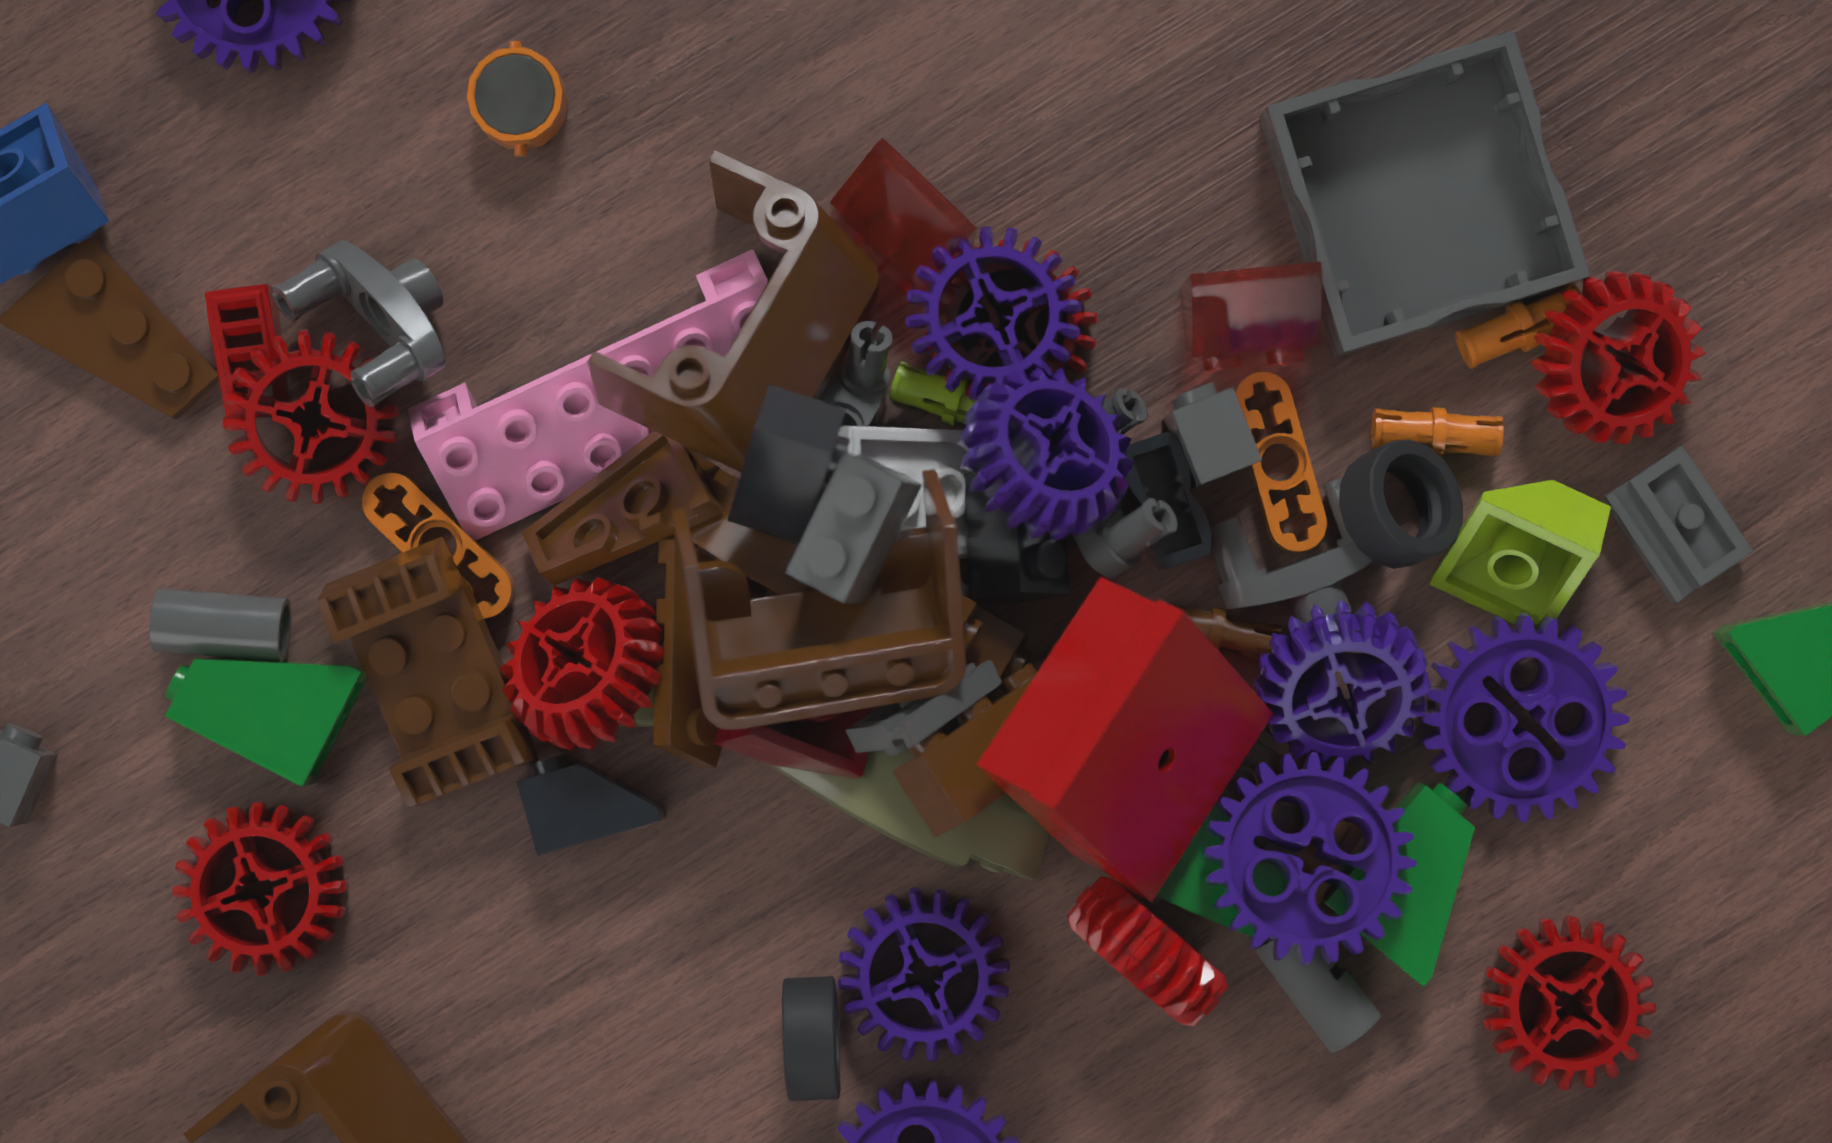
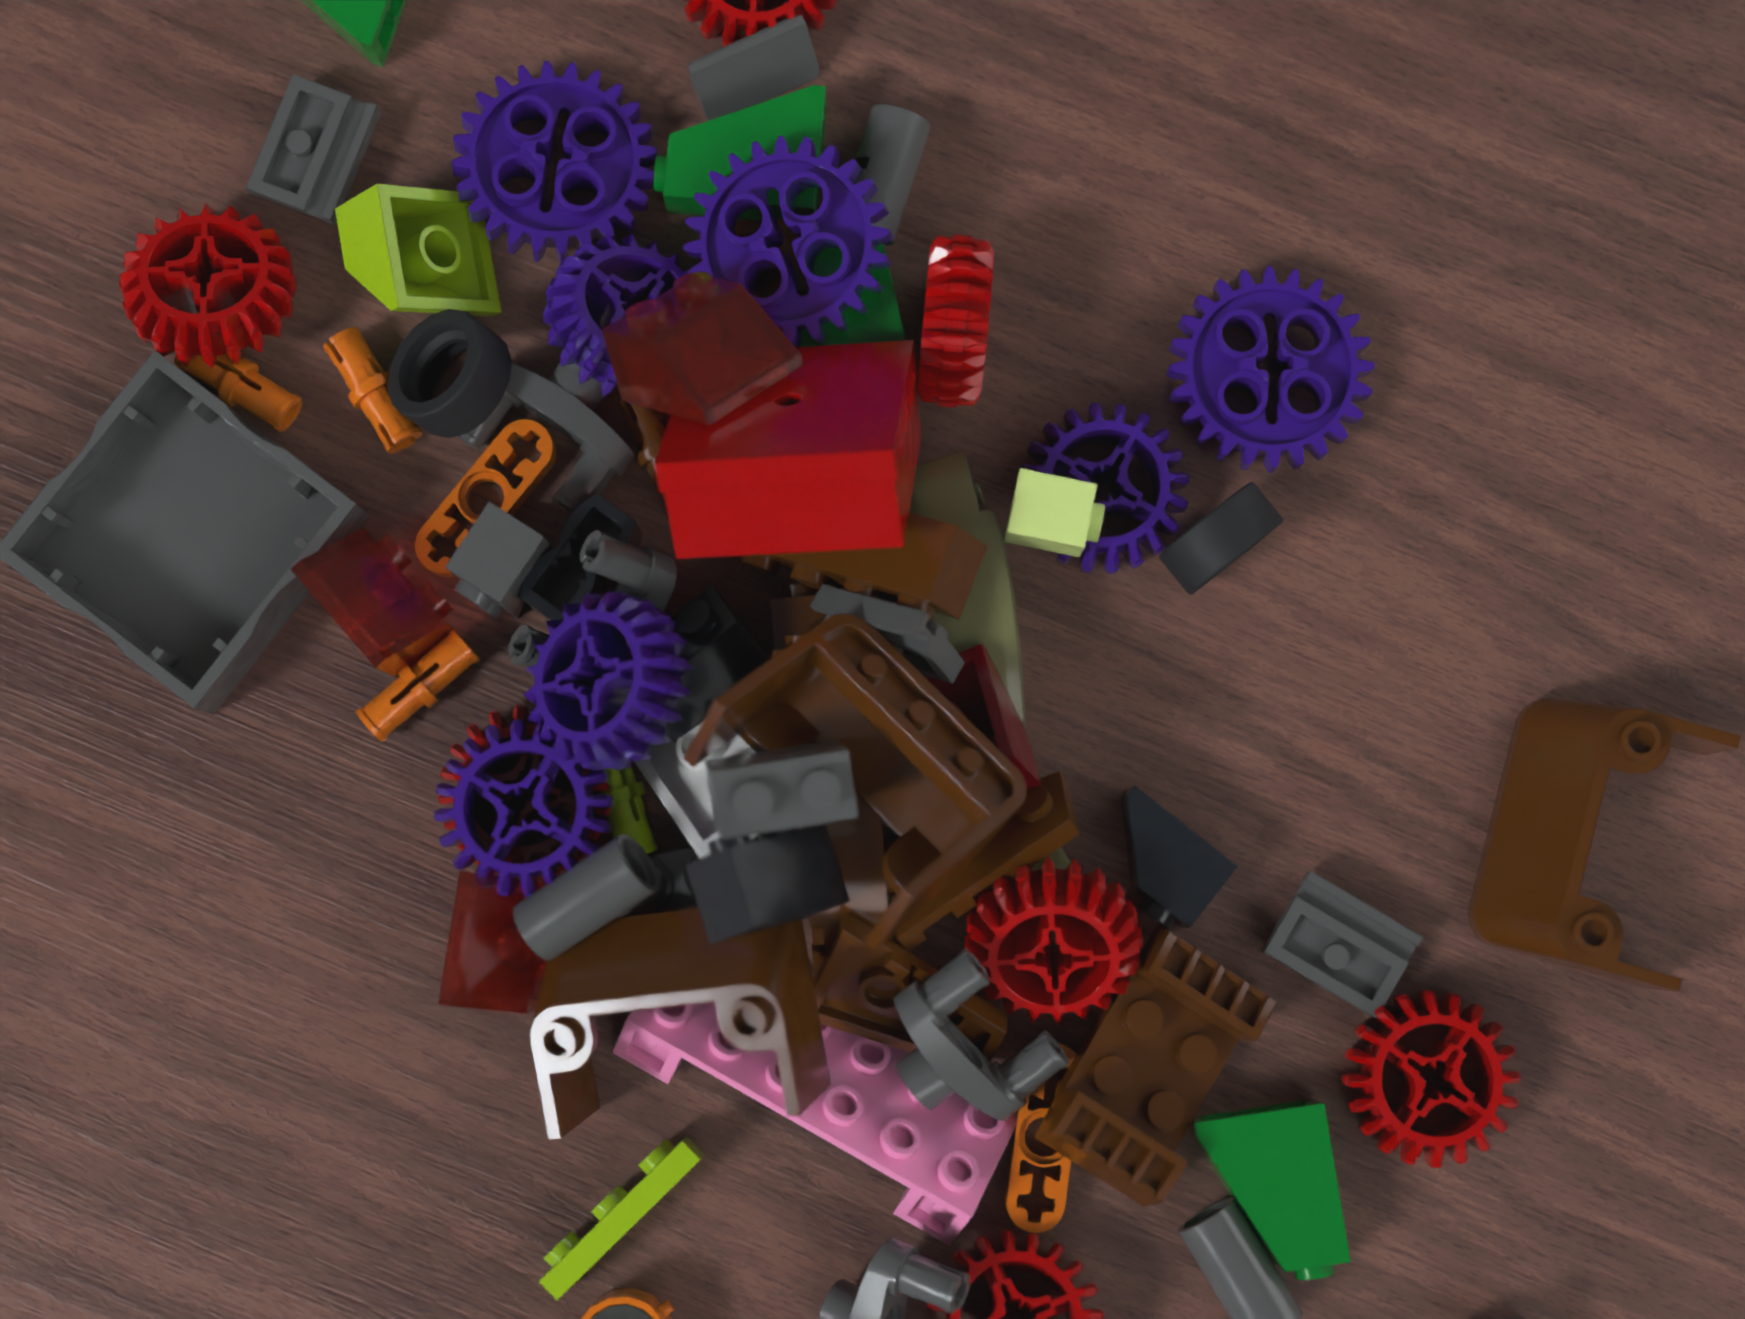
camera: 120 degrees left, 5 degrees down
(417, 896) = (1341, 944): none -> dark grey plate
(545, 513) = (951, 1062): none -> dark grey connector
(619, 165) = (618, 1214): none -> lime plate
(884, 314) = (586, 897): none -> dark grey pin
(926, 913) = (1053, 513): none -> yellowish green brick
(1159, 254) = (417, 685): none -> orange pin
(1262, 717) = (698, 349): none -> clear red slope
(1484, 939) = (754, 68): none -> dark grey slope

